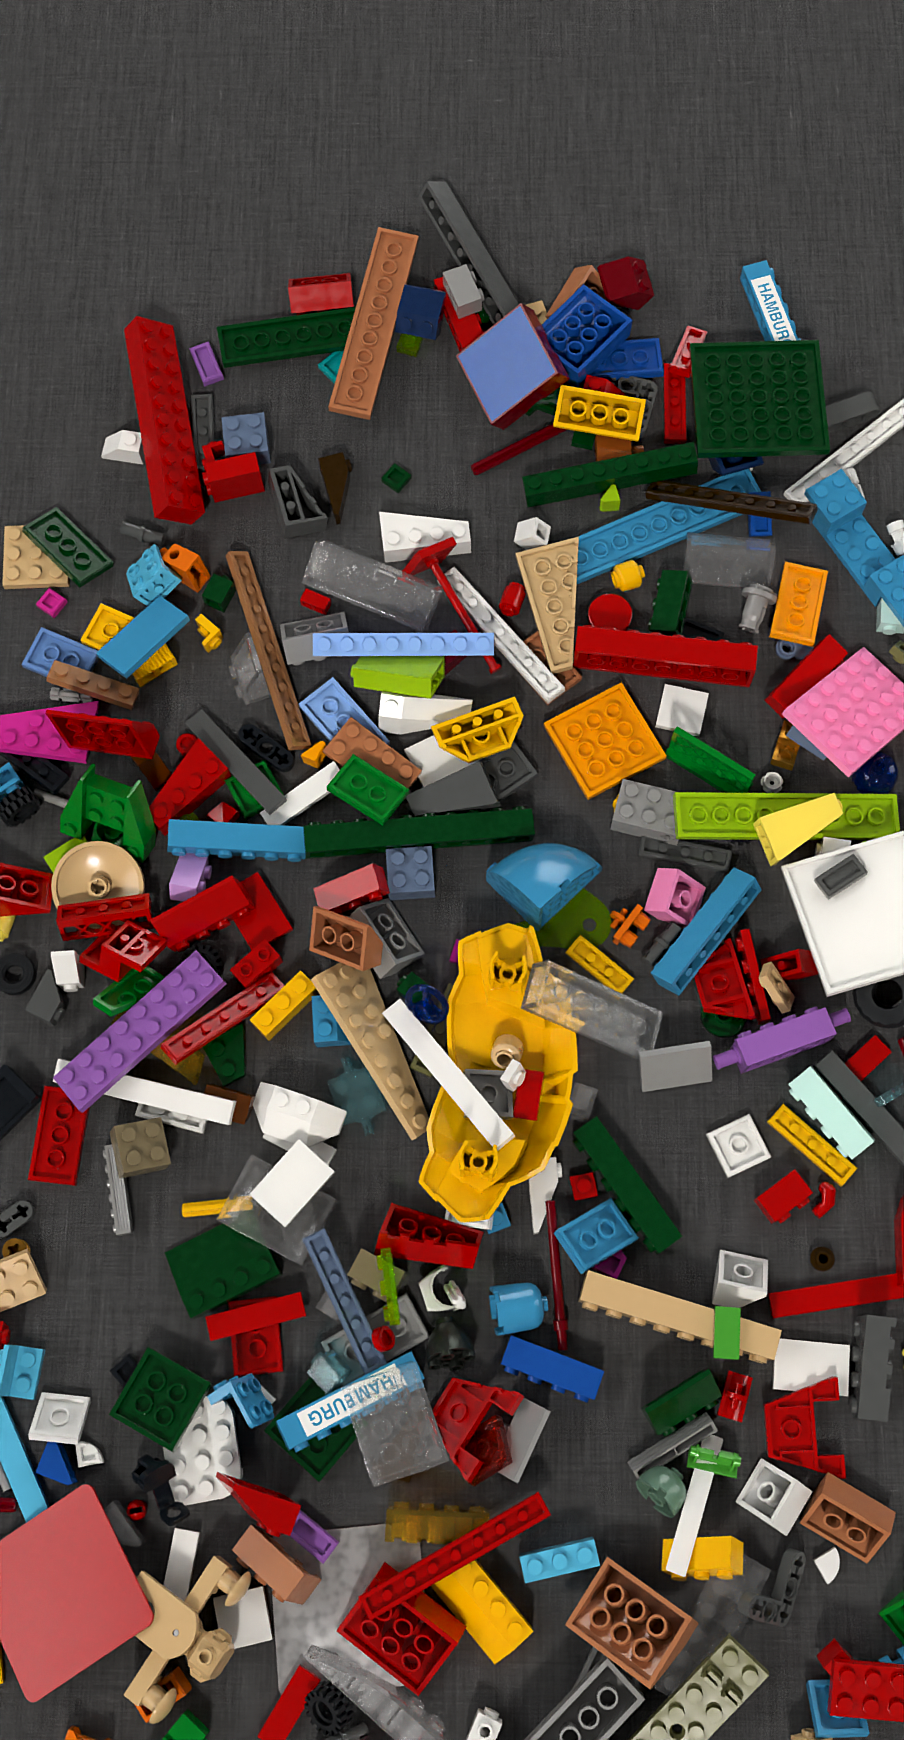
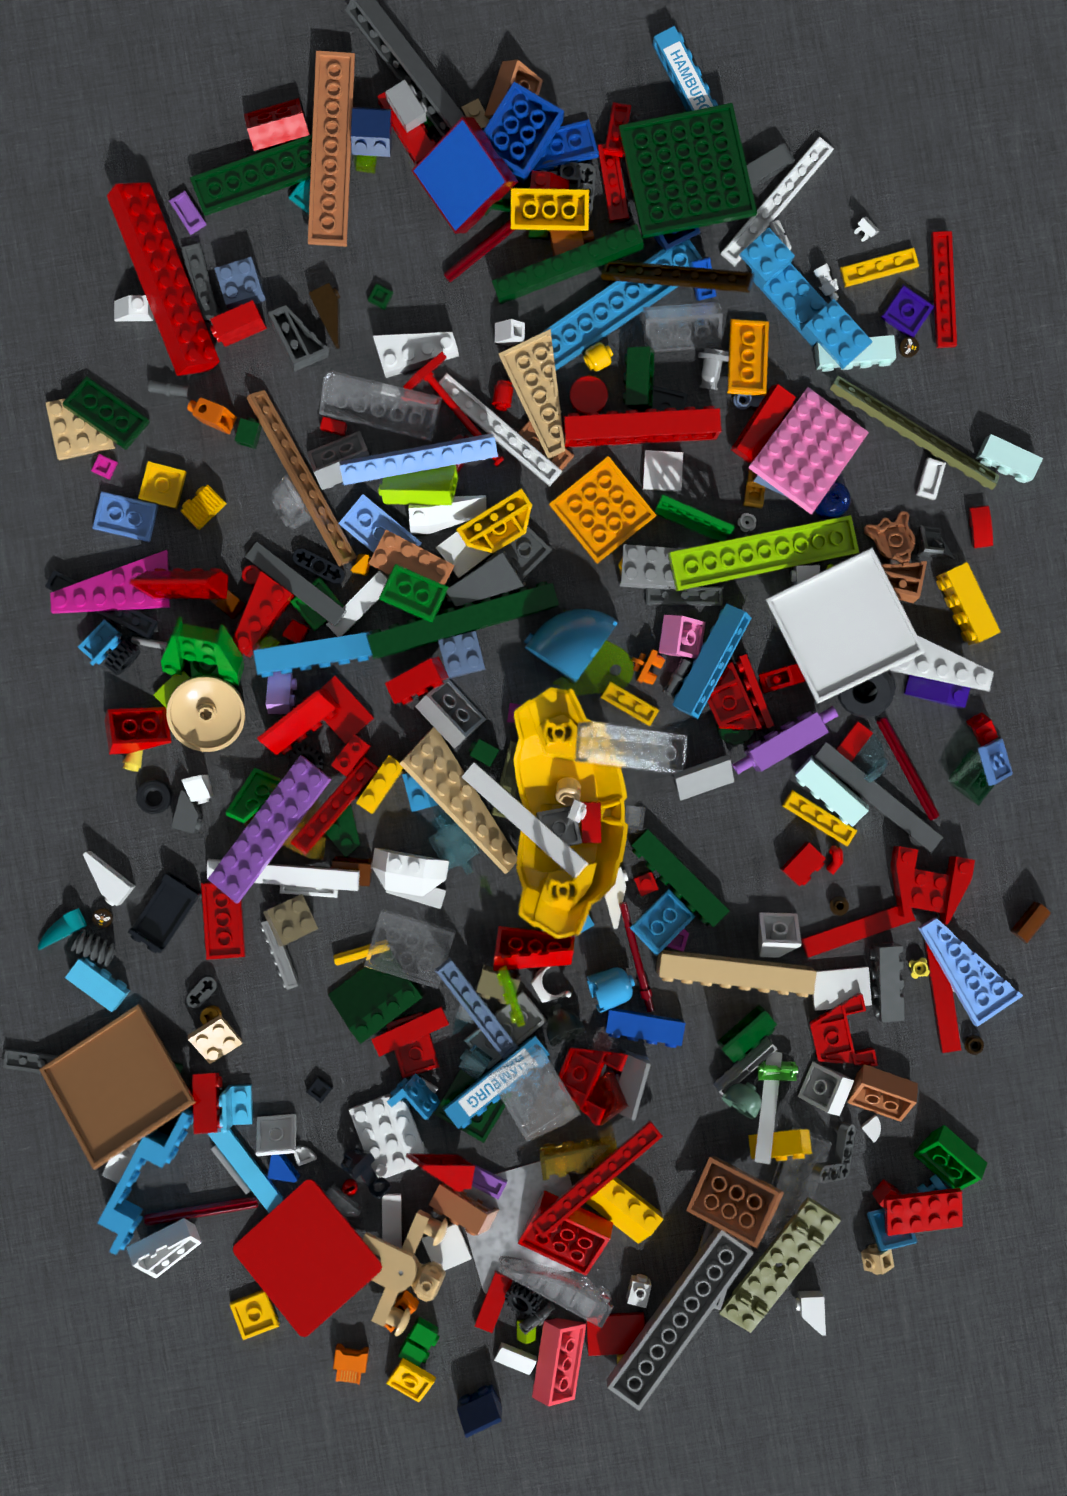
camera: 10 degrees left, 15 degrees up
(68, 695) = (142, 548): light grey axle -> none
(93, 685) = (158, 537): medium nougat plate -> none
(103, 913) = (217, 736): red fence -> none
(125, 949) = (240, 765): red bracket -> none
(143, 636) = (192, 487): dark azure tile -> none
(151, 577) = (186, 432): medium azure bracket -> none
(160, 1399) = (350, 1107): dark green plate -> none
(210, 632) = (245, 469): yellow bracket -> none
(211, 451) = (212, 300): red bracket -> none
(292, 1183) = (418, 928): white tile -> none
(344, 940) = (420, 726): nougat slope -> none
(383, 1338) = (511, 1031): red tile -> none
(425, 1008) = (497, 770): clear blue piece -> none
(454, 1294) = (560, 986): white piece -> none
(559, 1559) = (673, 1164): medium azure brick -> none
(610, 500) = (572, 286): lime slope -> none
(626, 282) = (551, 70): dark red slope -> none
(726, 1332) = (775, 982): bright green tile -> none
(734, 1396) = (786, 1022): red hips -> none
(738, 1146) = (762, 829): white tile -> none
(776, 987) = (775, 698): tan plate -> none
(790, 828) = (770, 565): light yellow slope -> none
(840, 876) = (815, 601): dark grey tile -> none

